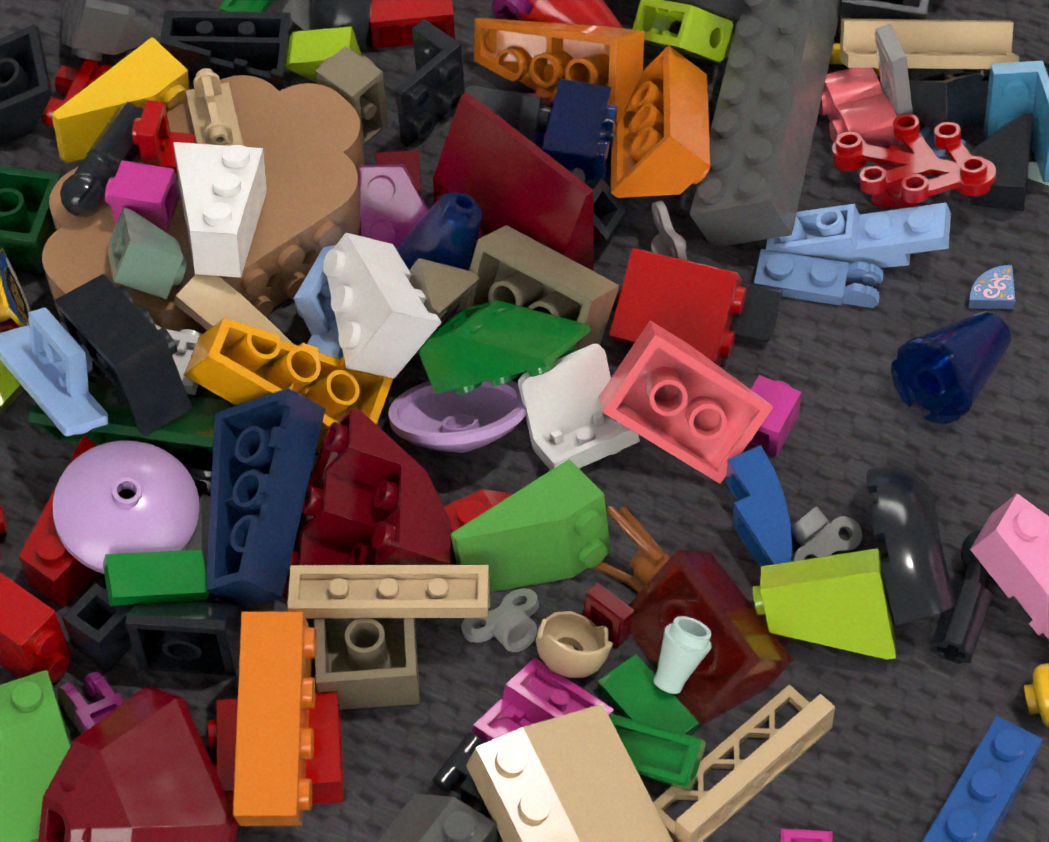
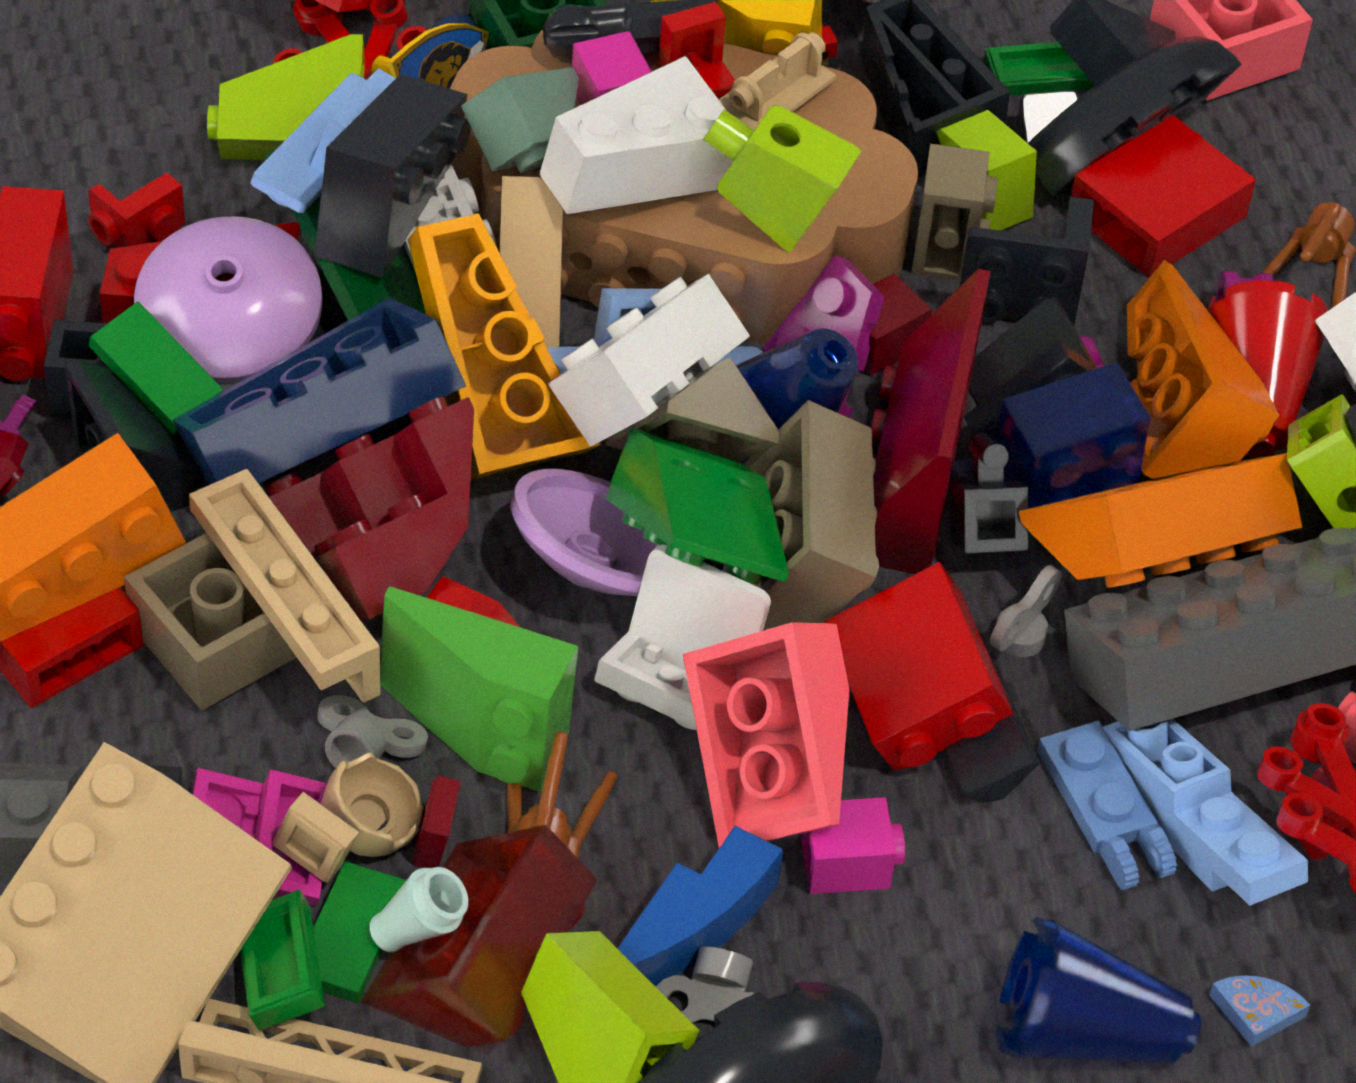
camera: 50 degrees right, 5 degrees down
(313, 144) = (780, 170): none -> lime torso
(583, 683) = (315, 837): none -> tan tile

